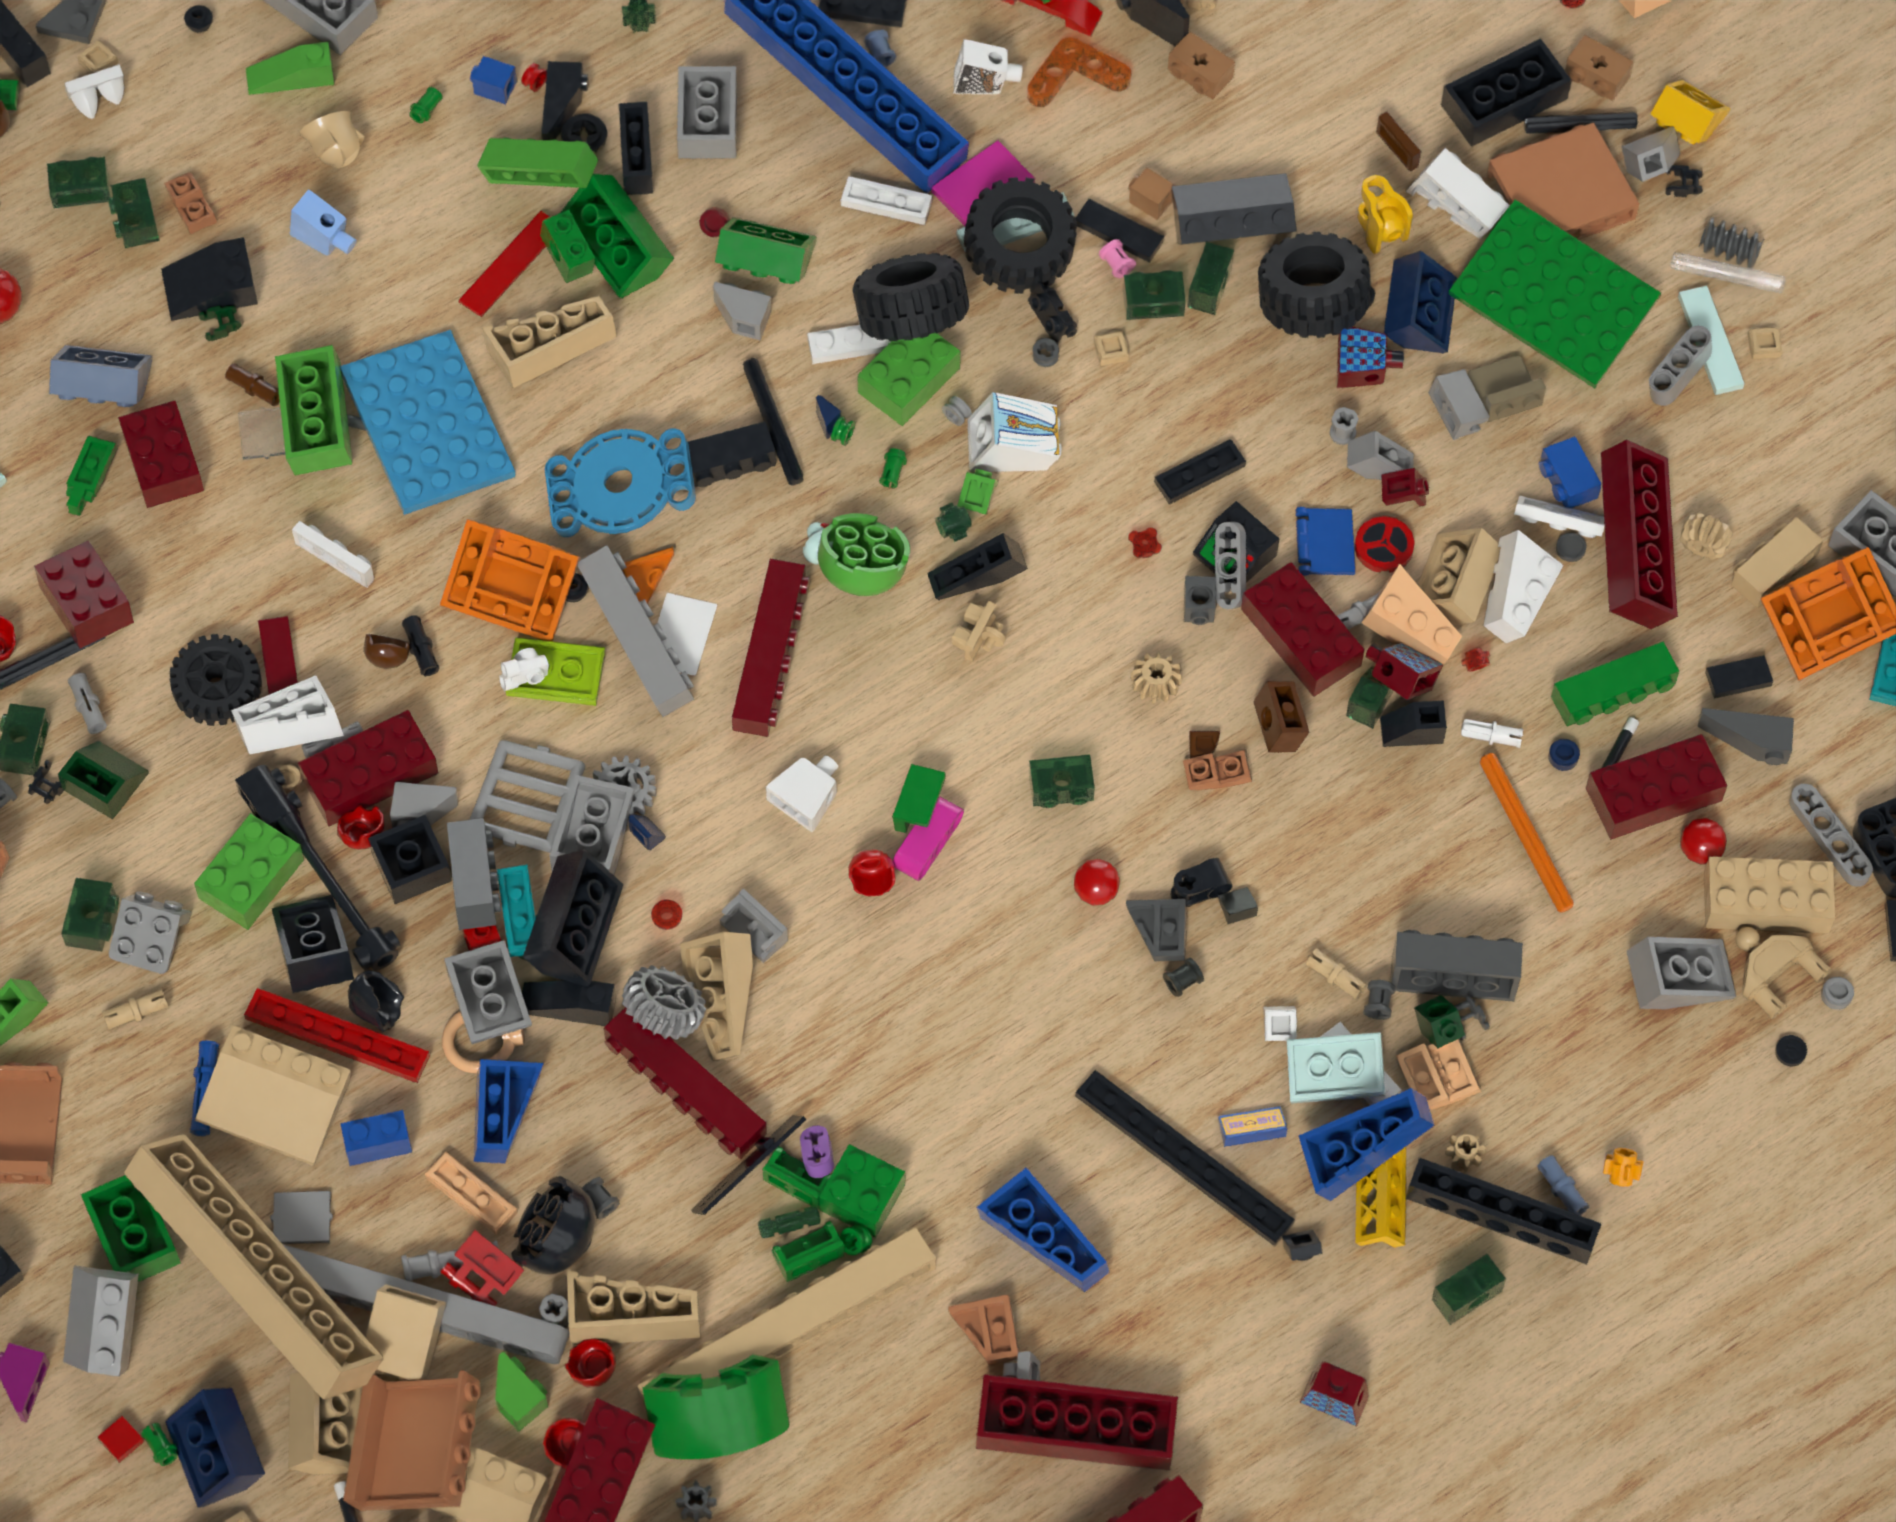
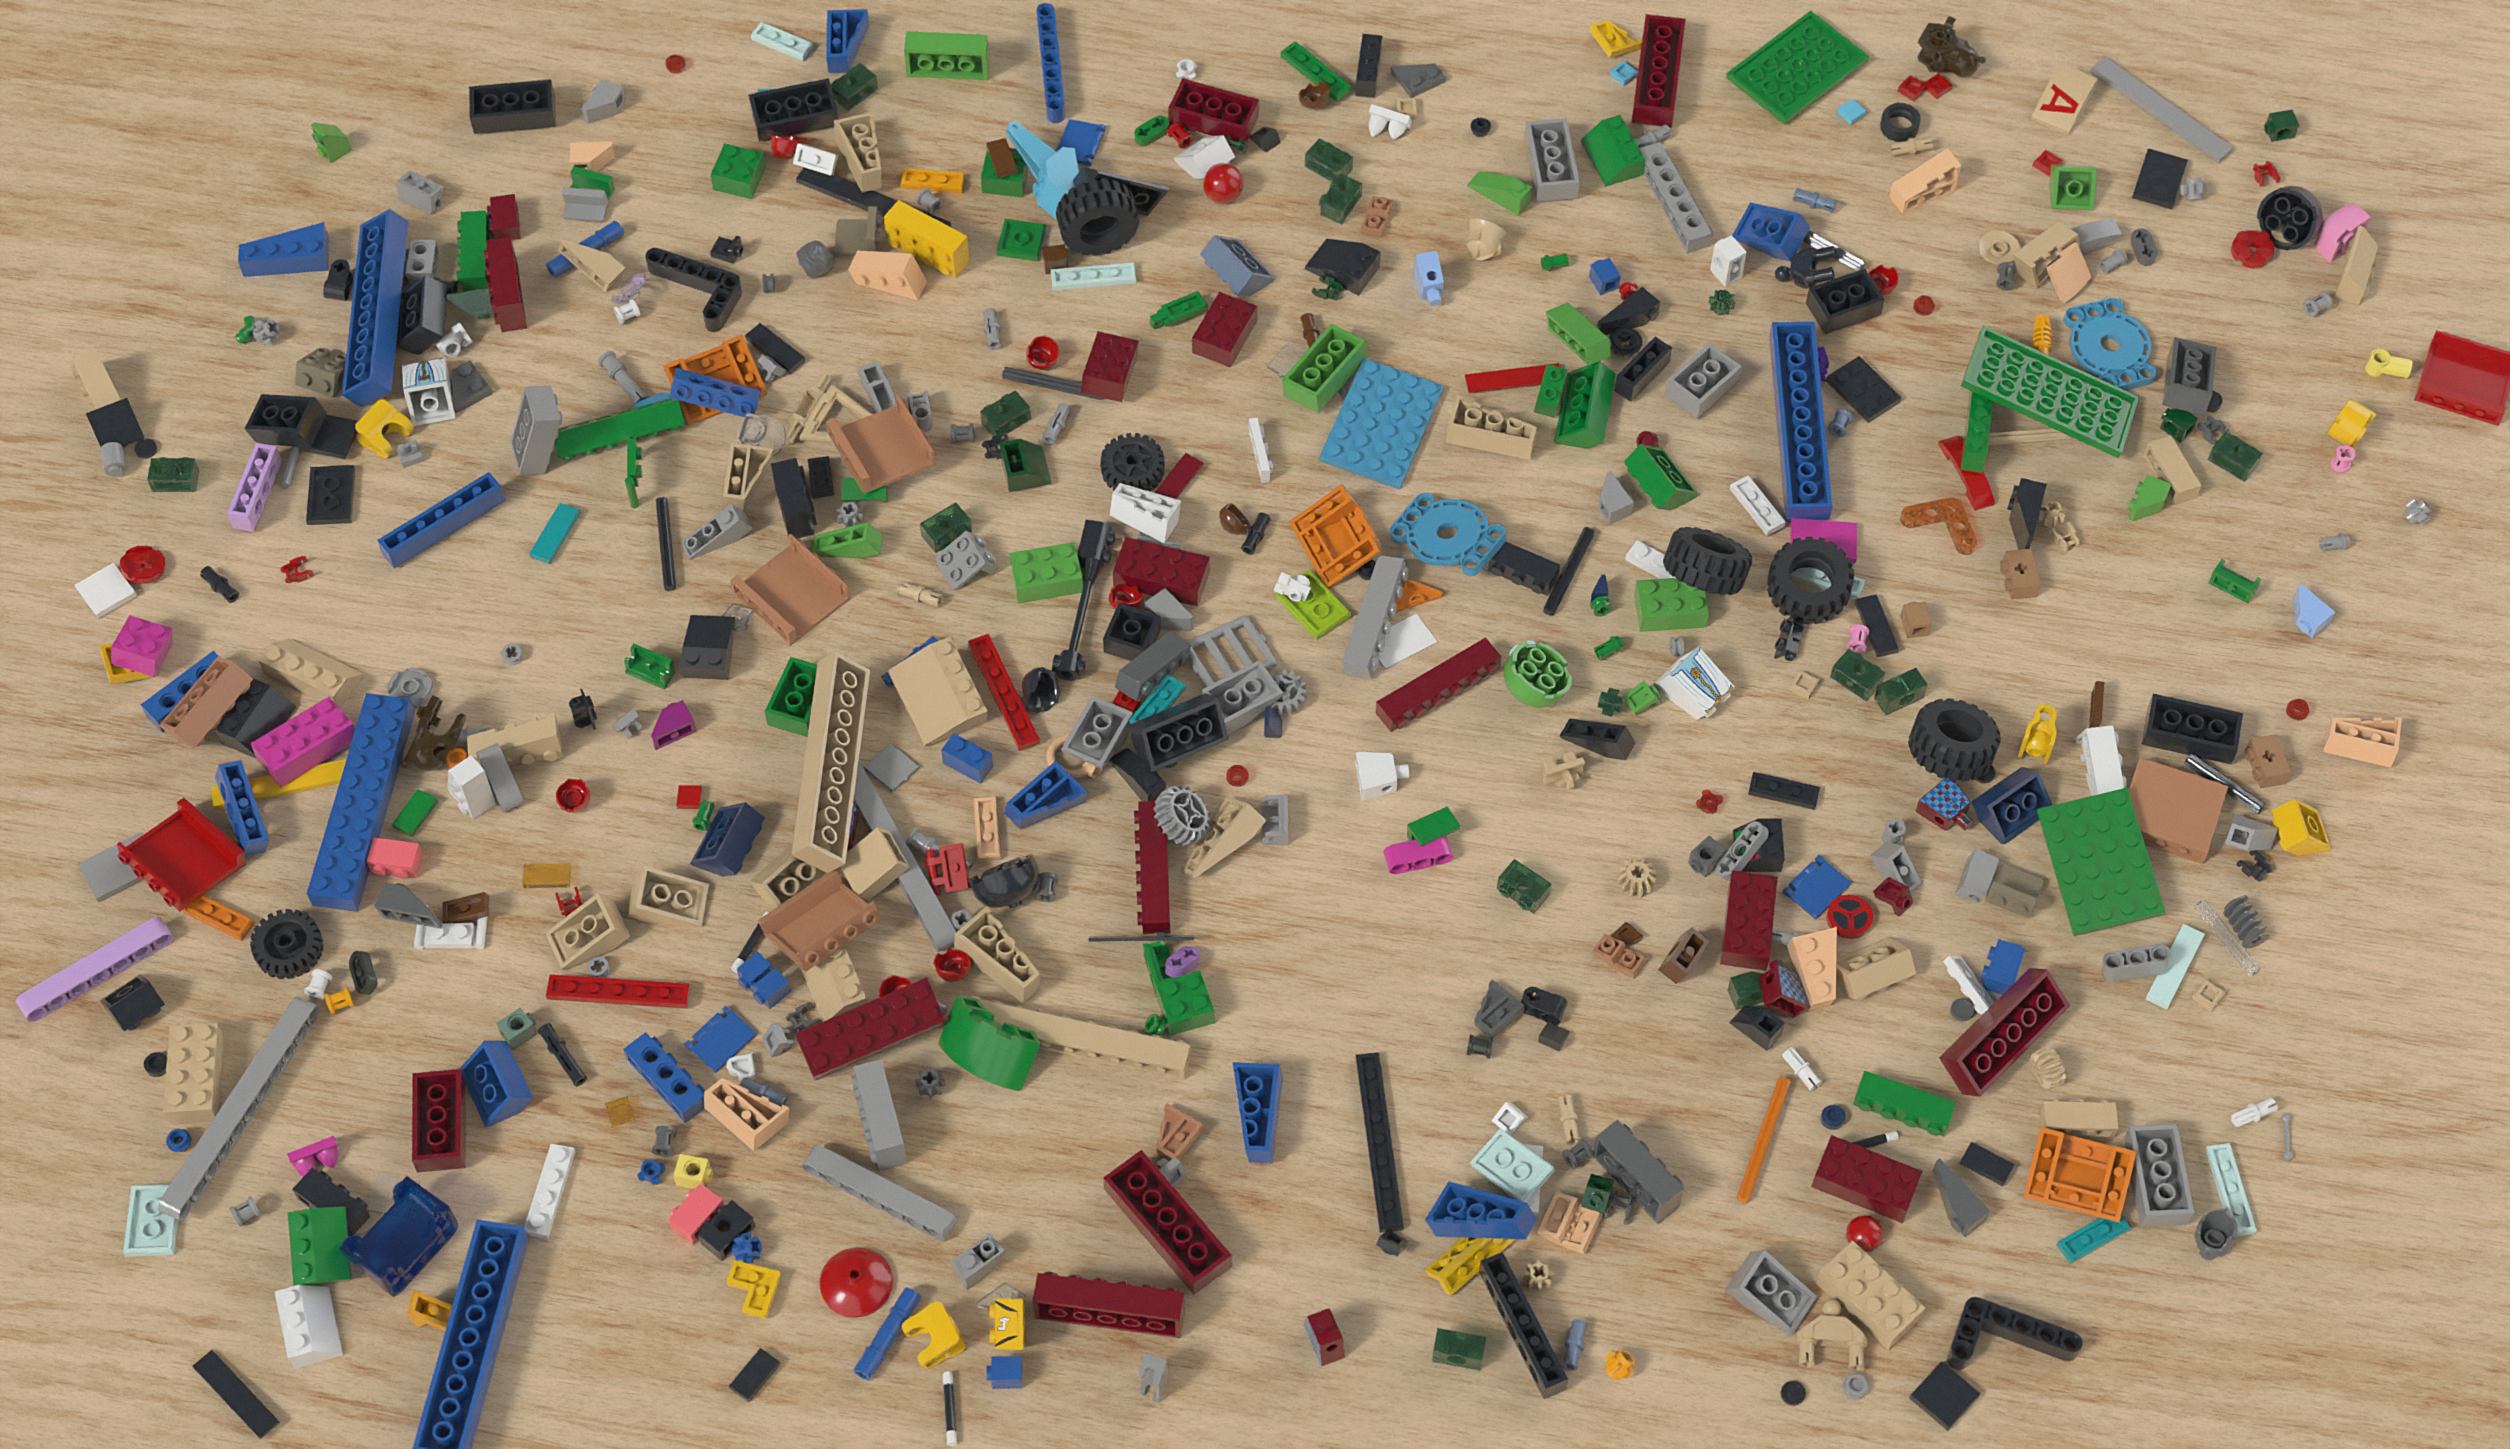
camera: 45 degrees right, 5 degrees down
(100, 1320) = (737, 729): light grey slope -> none
(312, 944) = (1039, 635): black slope -> none
(516, 1394) = (899, 946): bright green slope -> none
(789, 1222) = (1131, 986): clear green axle -> none
(809, 1252) = (1124, 1011): green hinge -> none
(872, 873) = (1367, 845): red hair -> none
(983, 69) = (1887, 477): white torso -> none
(1049, 345) = (1767, 661): dark grey bush -> none
(1096, 882) = (1487, 956): red hair -> none
(1233, 209) = (1953, 663): slope -> none
(1252, 1126) = (1434, 1158): slope -> none
(1476, 659) = (1835, 1021): clear red plate -> none
(1520, 586) = (1903, 1001): white wedge -> none
(1827, 836) = (1949, 1297): light grey beam -> none

